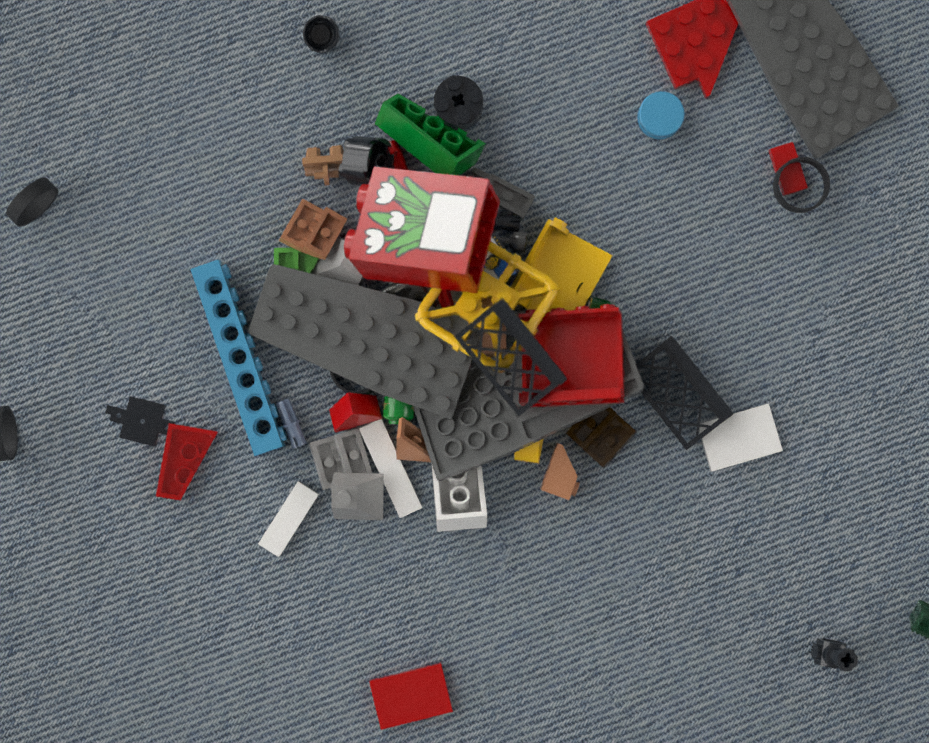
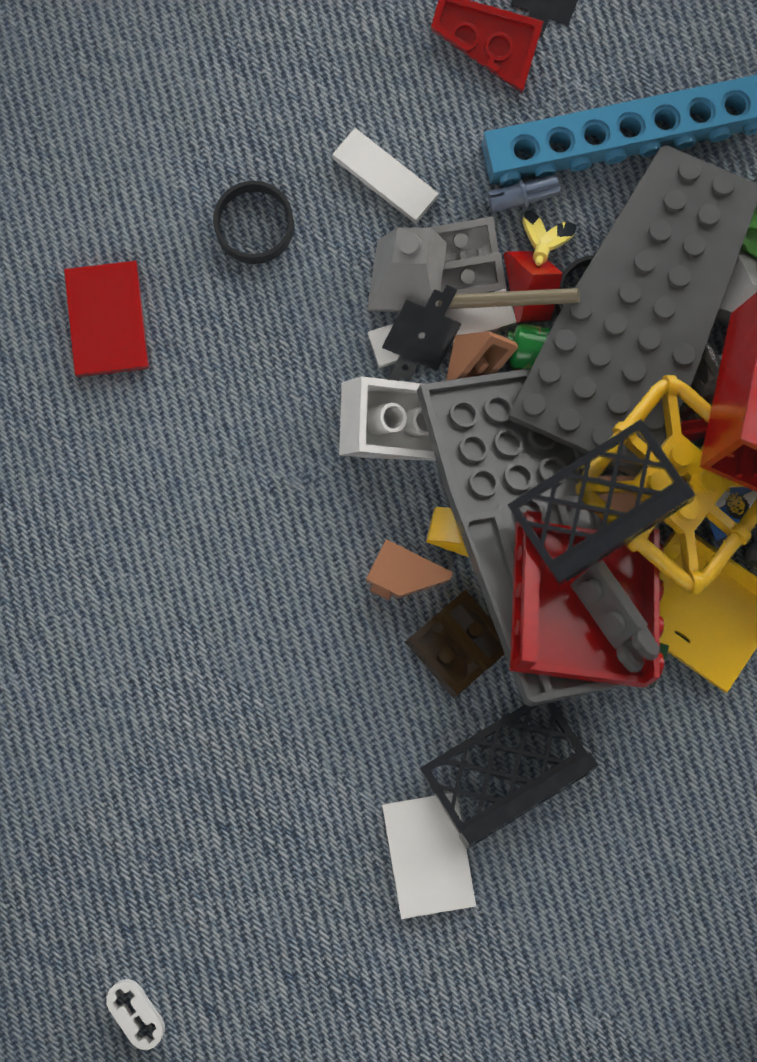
camera: 90 degrees right, 5 degrees down
(316, 624) = (245, 187): none -> black tyre
(323, 407) = (545, 241): none -> light yellow piece
(369, 426) = (515, 298): none -> dark tan bar
(396, 492) = (413, 320): none -> black piece
(581, 337) = (616, 616): none -> dark grey hinge
(833, 655) = (78, 958): black connector -> none
(867, 617) = (127, 1019): none -> white beam

